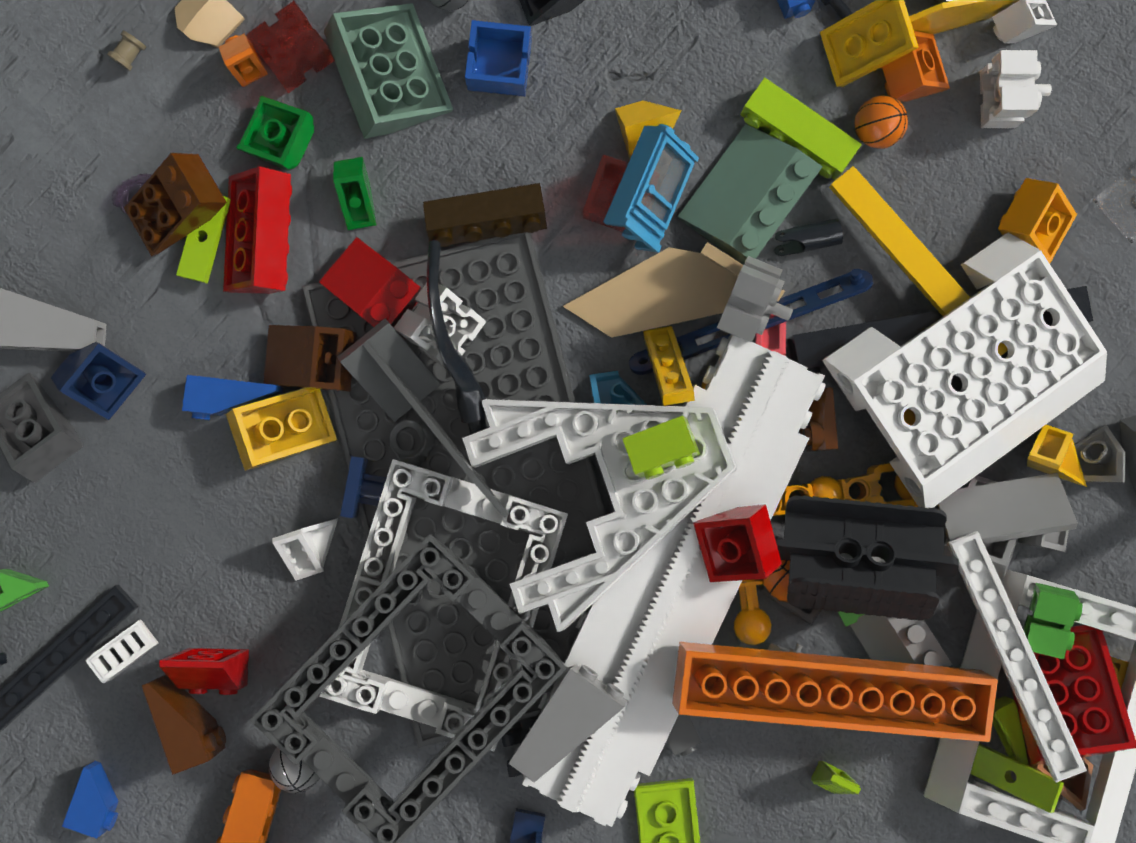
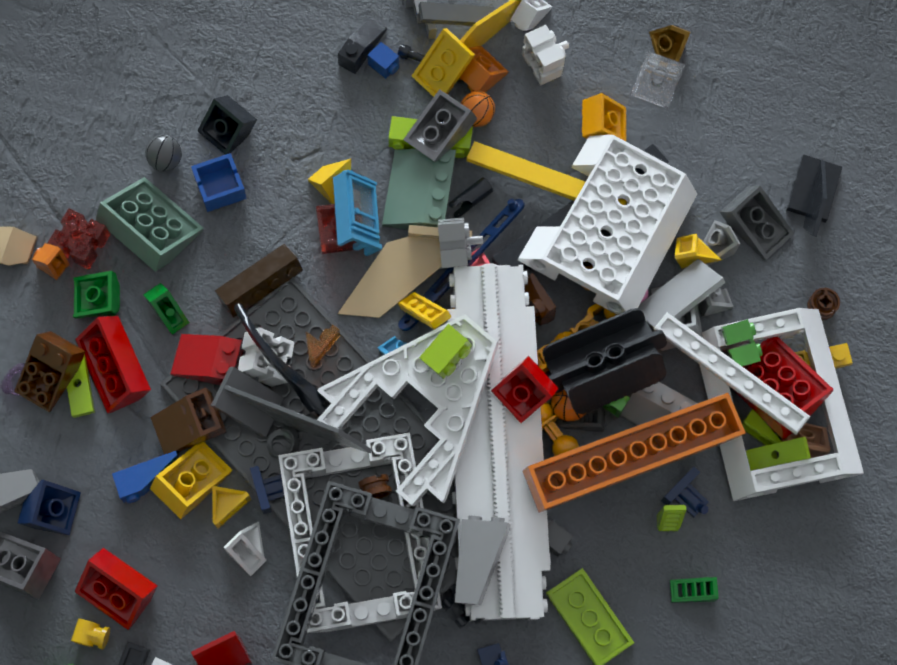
camera: 30 degrees left, 15 degrees down
(74, 554) = (90, 634): none -> yellow piece
(130, 514) = (115, 588): none -> red slope
(305, 480) = (227, 503): none -> yellow slope
(492, 557) = (376, 485): none -> reddish brown wheel
(511, 344) = (319, 348): none -> clear orange slope
(819, 125) = (440, 126): none -> flat silver slope
(870, 758) = (687, 495): none -> dark blue piece

